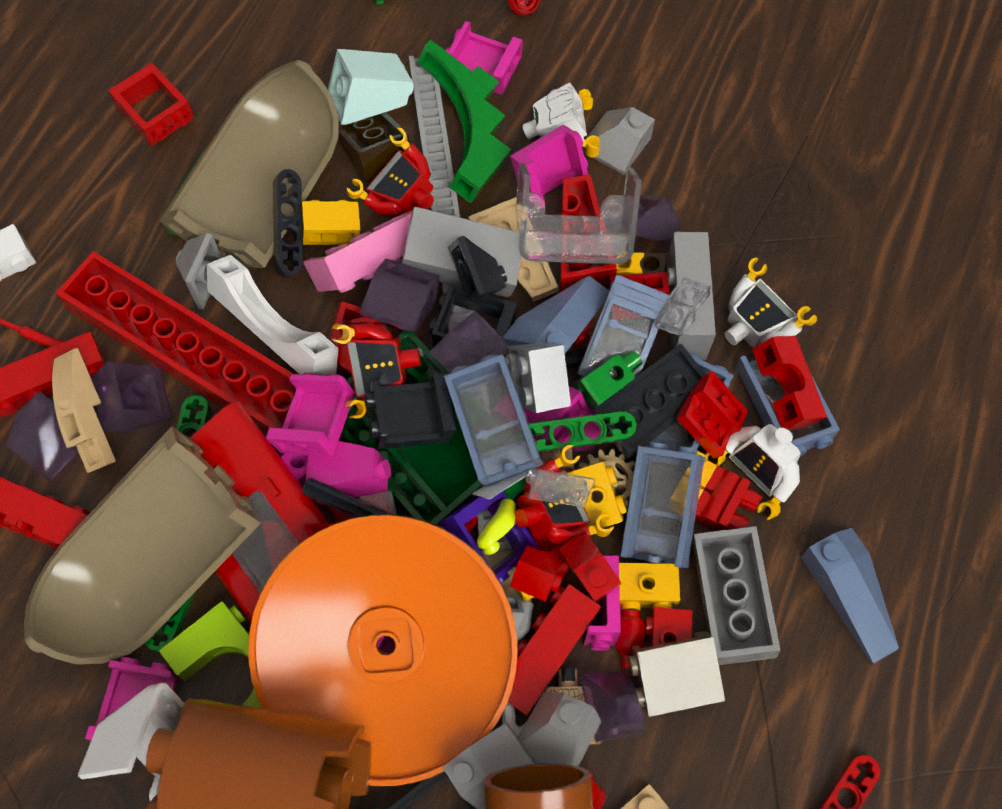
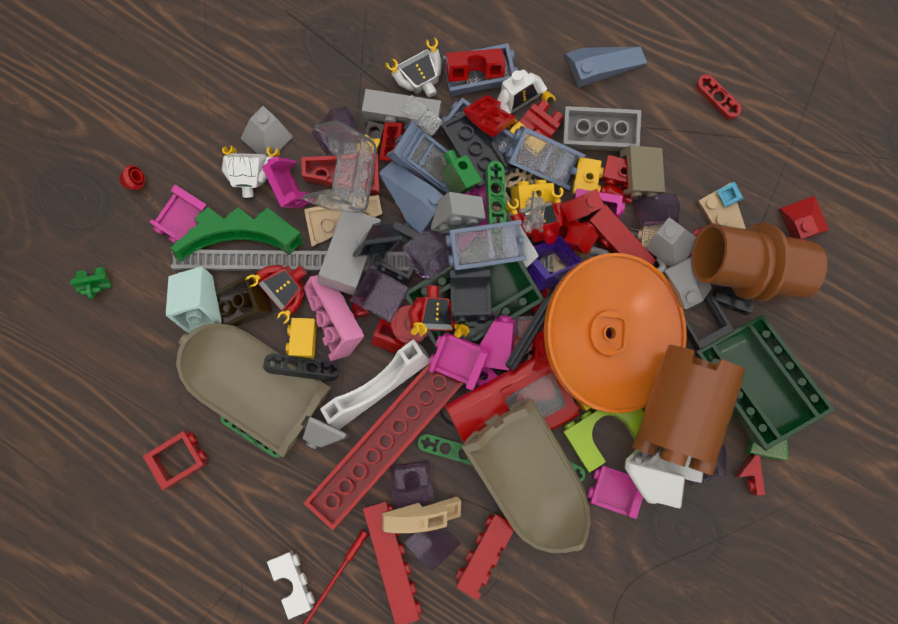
camera: 80 degrees left, 15 degrees up
(497, 527) = (553, 254): neon yellow arm -> none

